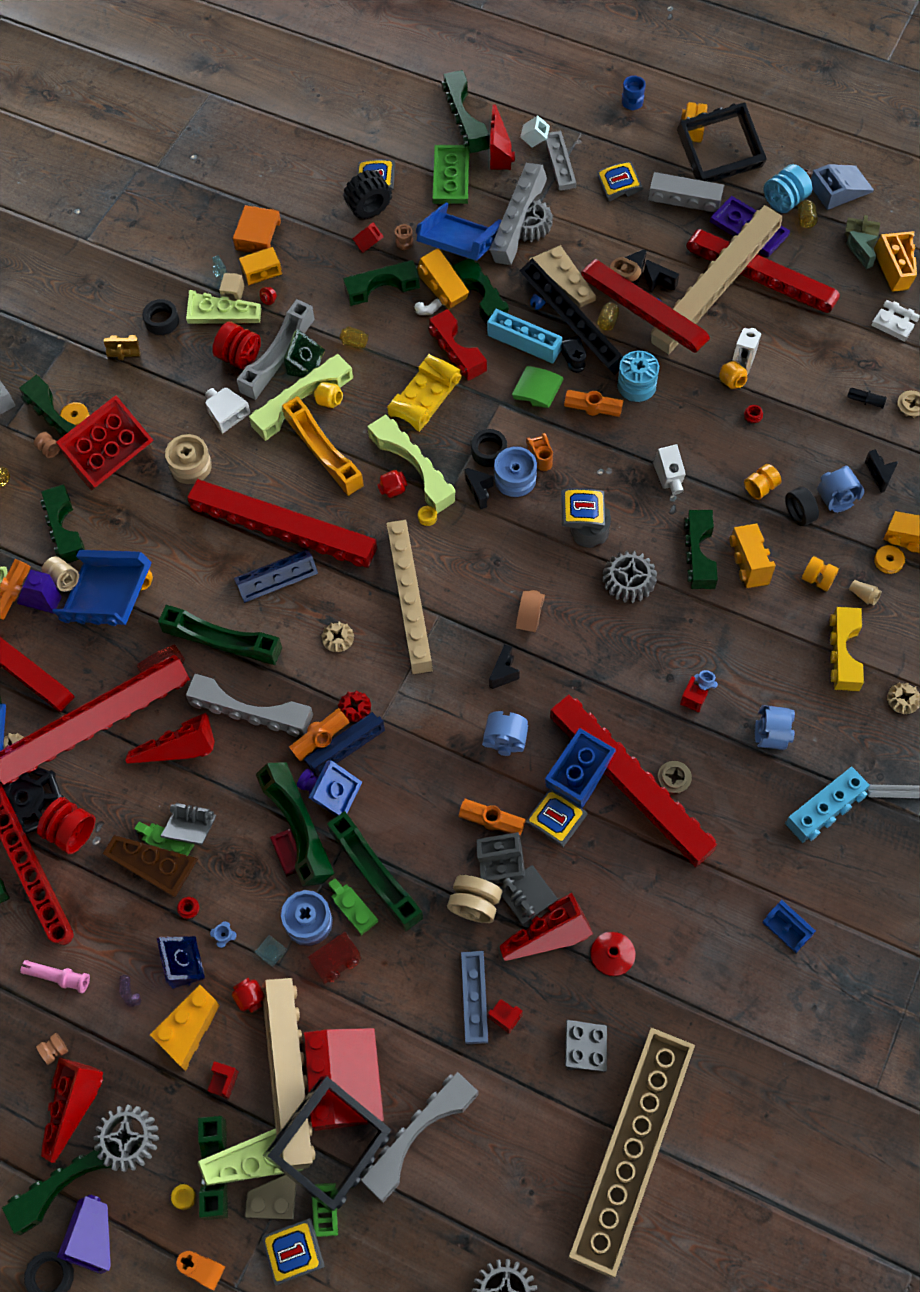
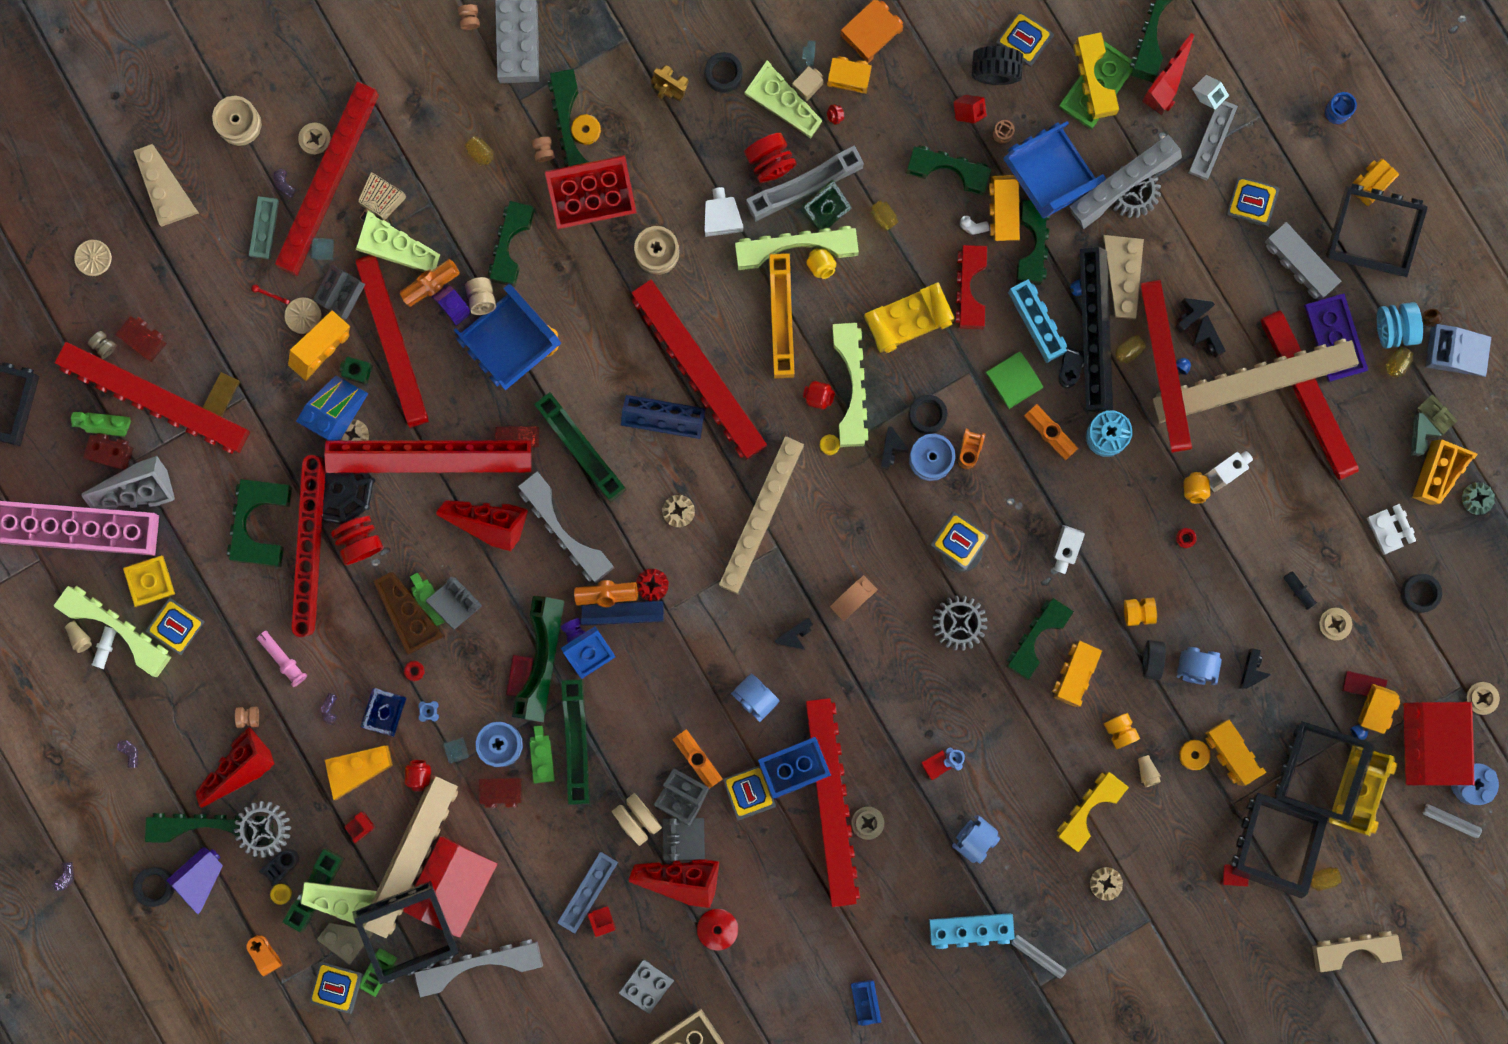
camera: 30 degrees right, 20 degrees up
(165, 1170) = (277, 869): none -> black piece
(459, 174) = (1101, 100): none -> yellow arch
(626, 268) = (1178, 316): medium nougat plate -> none

